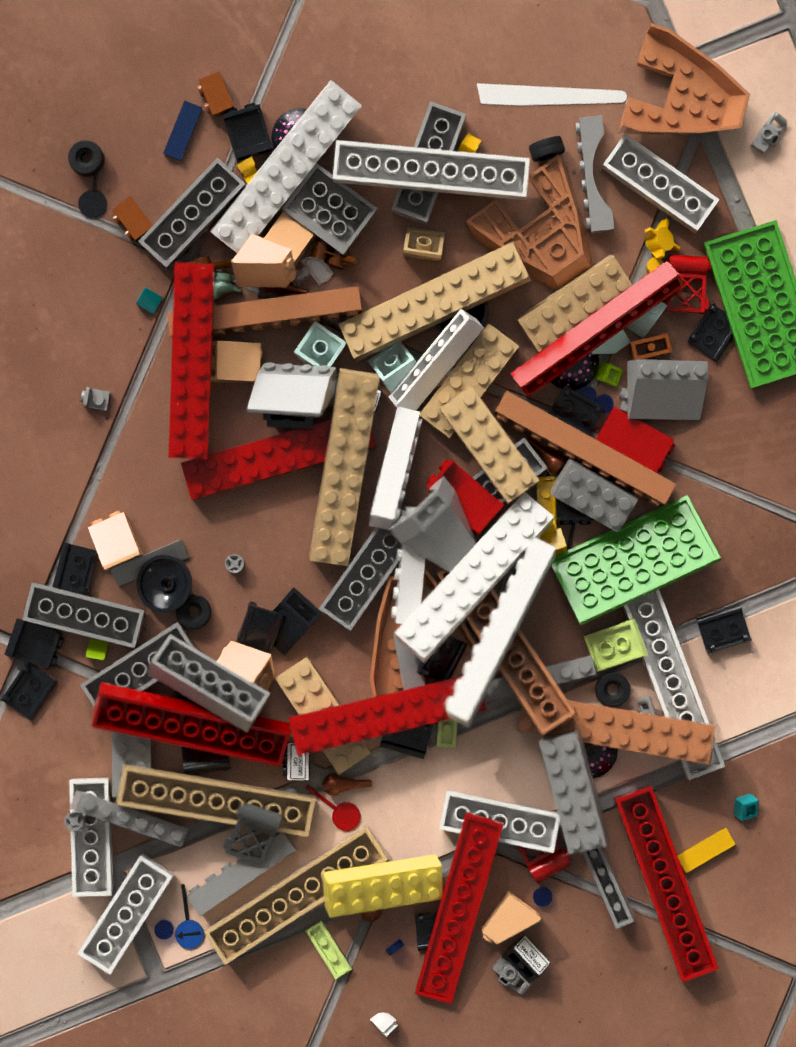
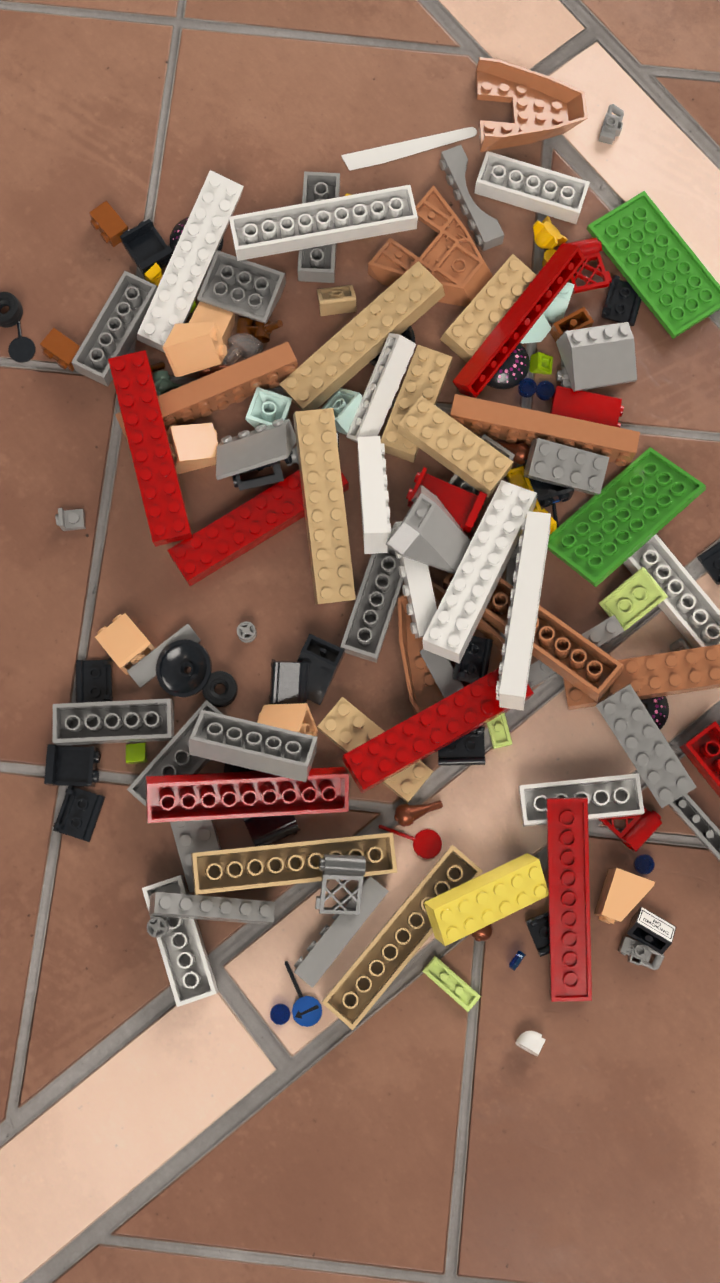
camera: 20 degrees left, 10 degrees down
(126, 913) = (236, 1010): white brick -> none
(149, 300) = (97, 417): teal slope -> none
(182, 130) = (88, 264): dark blue tile -> none
(297, 766) = (364, 805): white brick -> none
(546, 148) = (421, 184): black tyre -> none
(576, 410) = (524, 396): black piece -> none
(623, 689) = (647, 633): black tyre -> none

